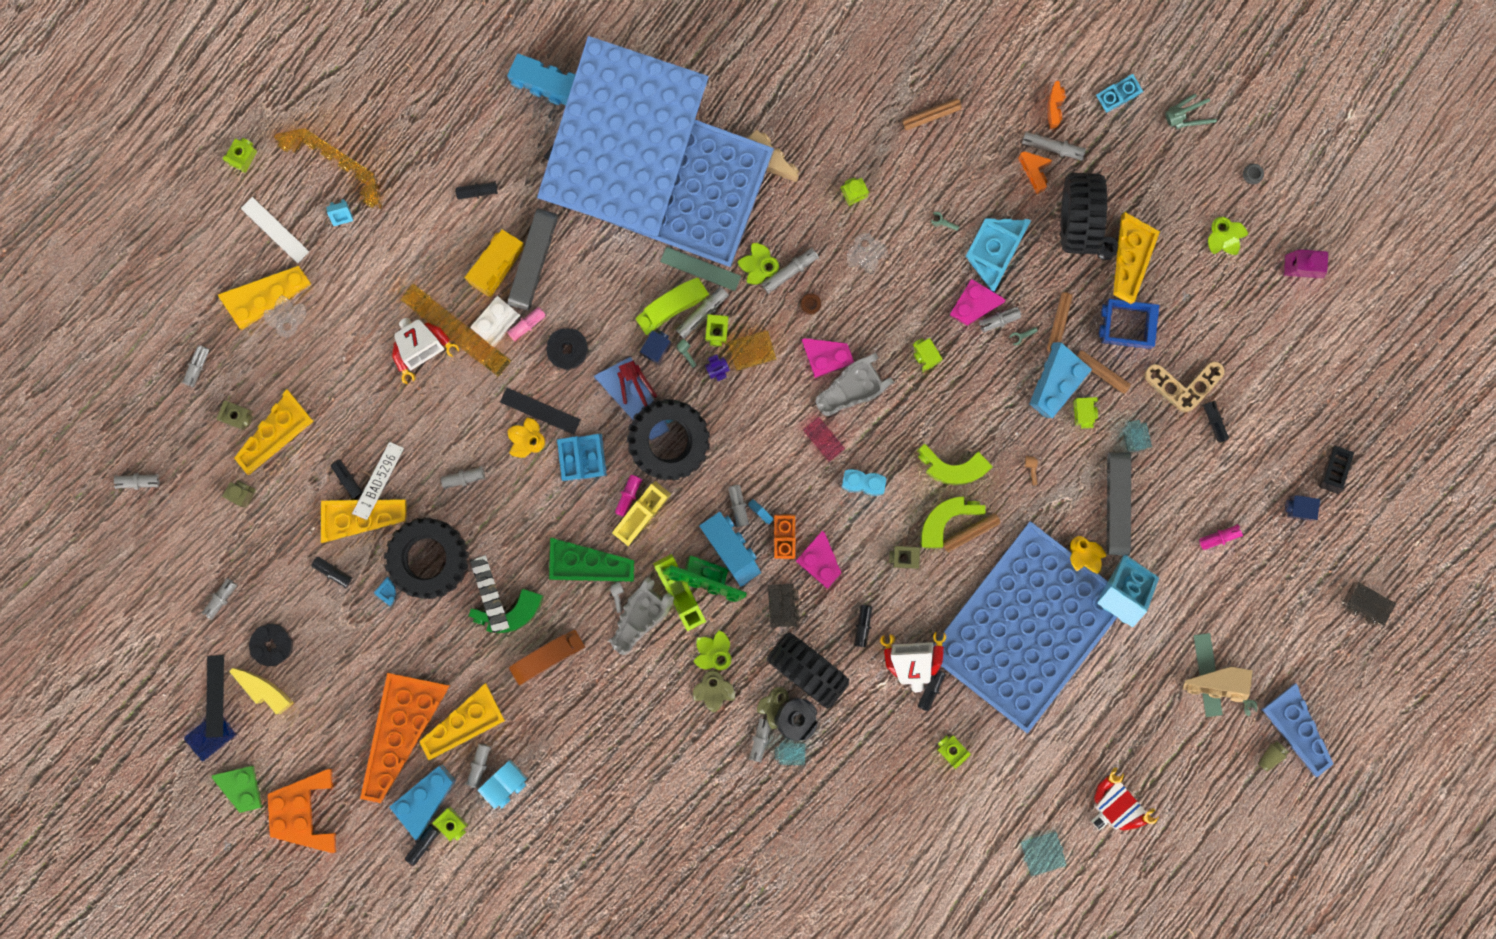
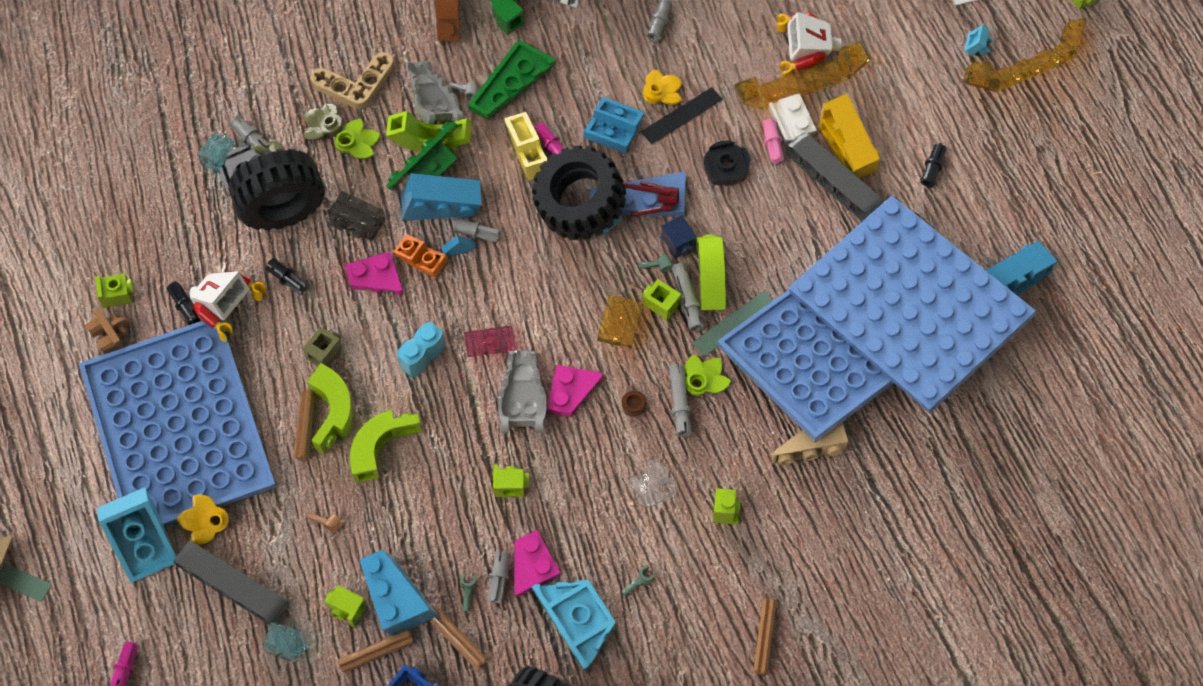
camera: 120 degrees right, 20 degrees down
(670, 687) = (355, 89): none -> tan beam
(717, 367) = (623, 279): dark purple gear -> none
(986, 739) = (100, 324): none -> medium nougat hips

